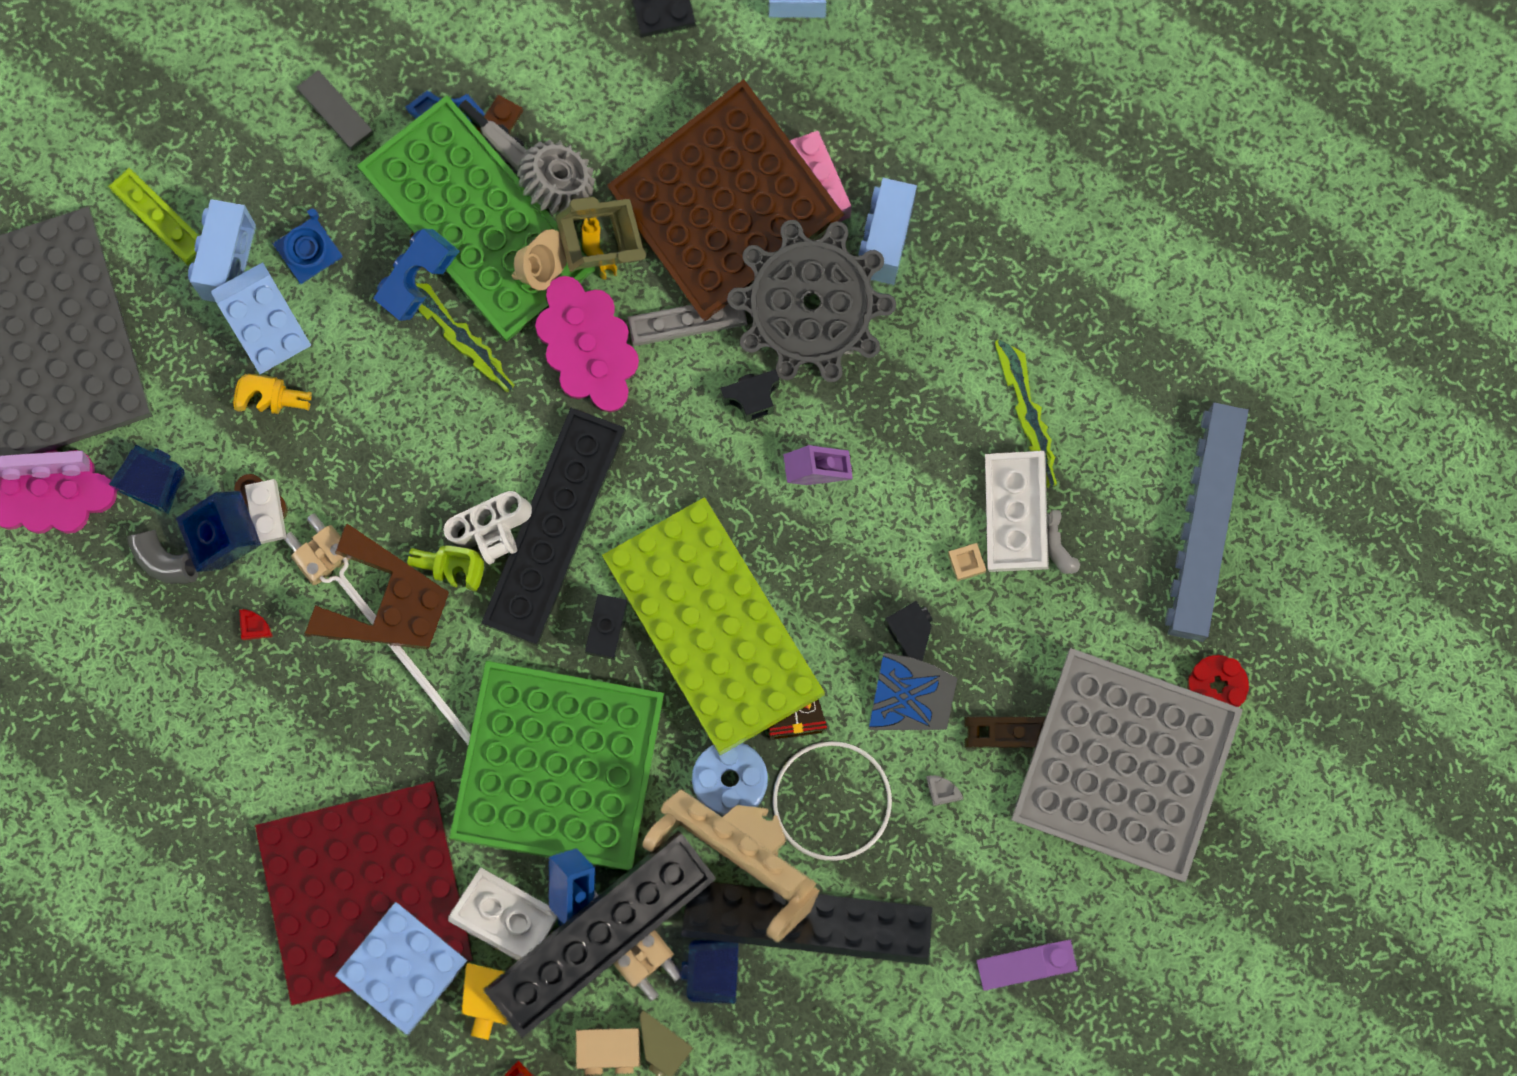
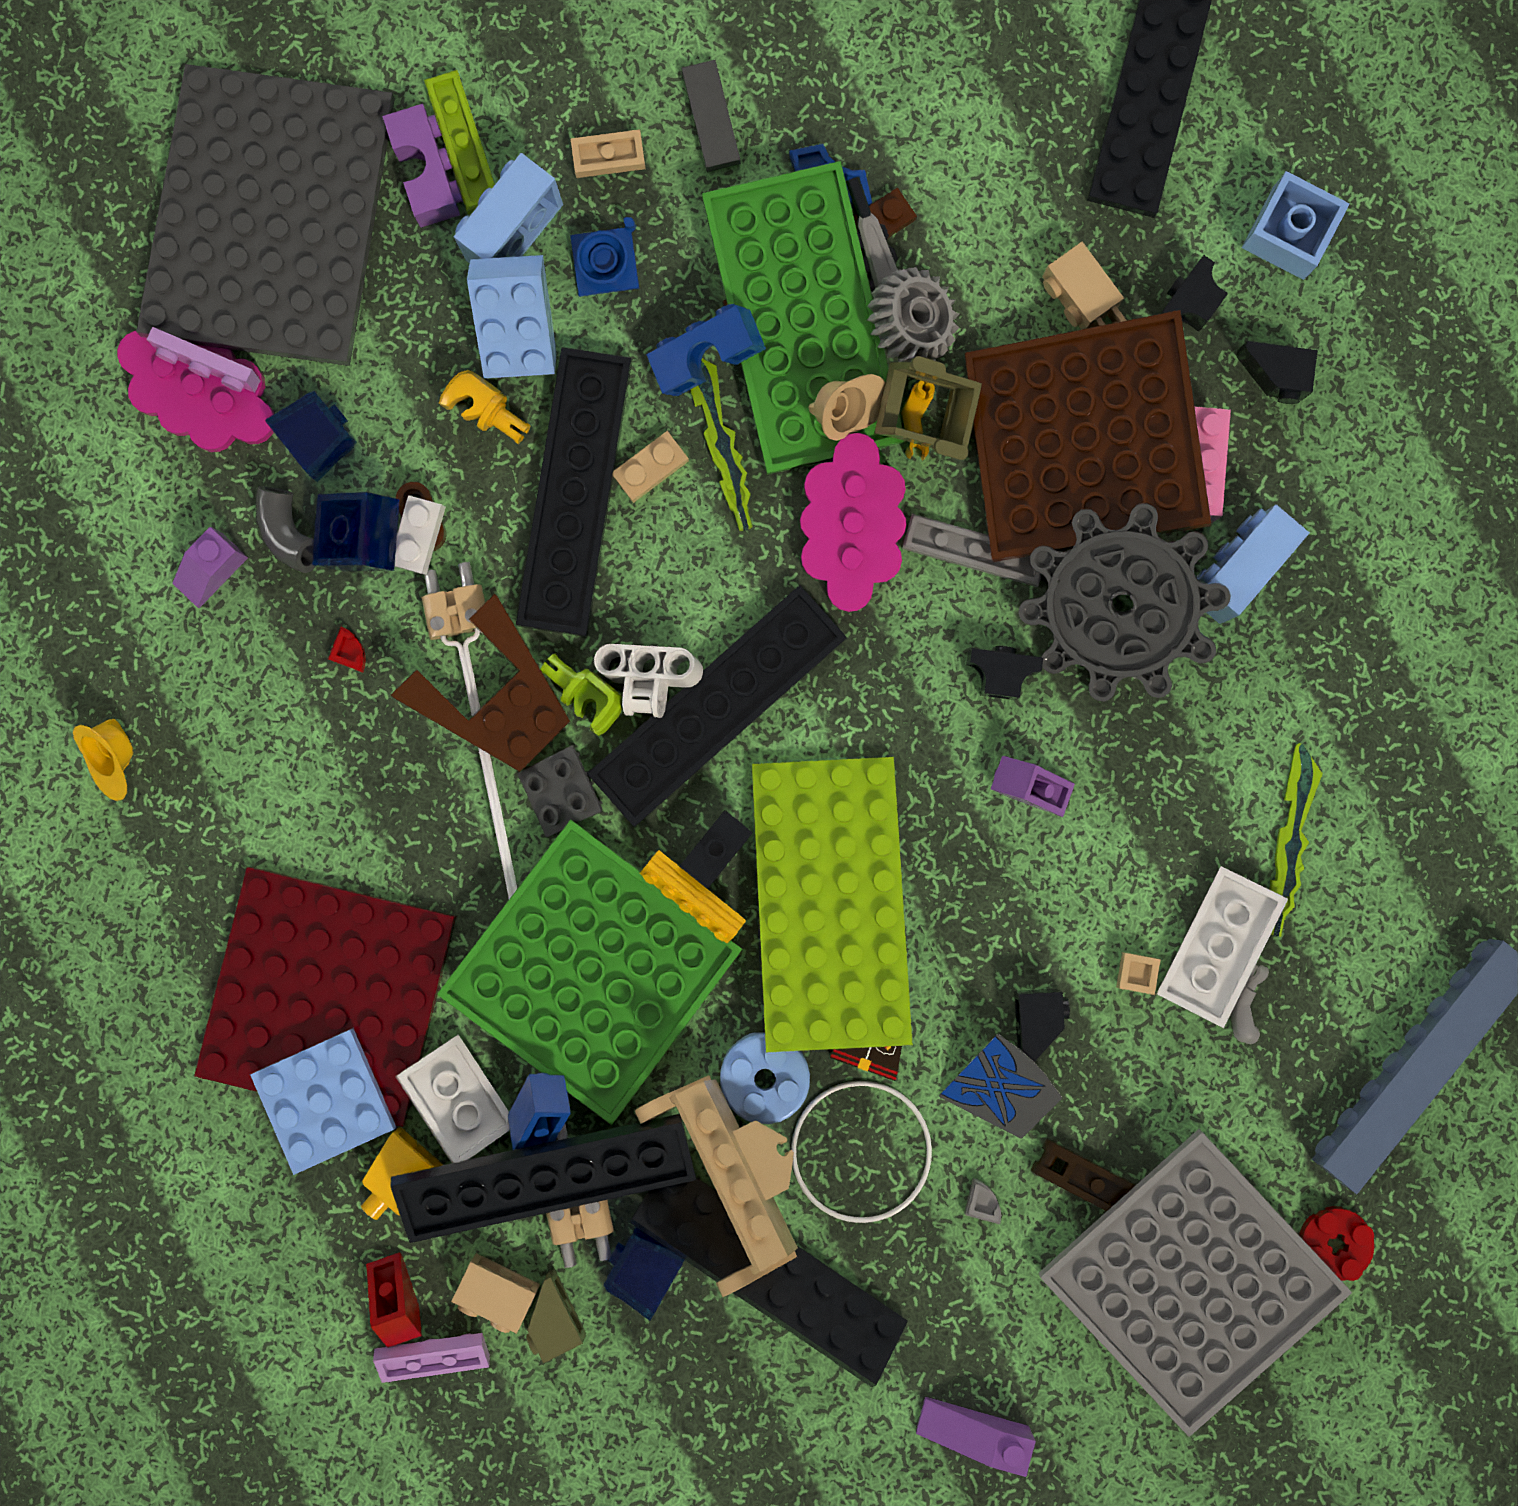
camera: 30 degrees right, 10 degrees up
(104, 796) = (106, 755): none -> yellow piece
(115, 615) = (207, 566): none -> medium lavender slope
(121, 228) = (414, 137): none -> medium lavender arch
(272, 172) = (608, 153): none -> tan plate
(368, 425) = (574, 492): none -> black plate
(415, 379) = (650, 466): none -> tan plate
(466, 646) = (560, 791): none -> dark grey hinge
(606, 671) = (692, 897): none -> yellow piece
(668, 99) = (1083, 289): none -> tan brick
(753, 64) = (1196, 295): none -> black brick
(840, 86) = (1280, 369): none -> black slope

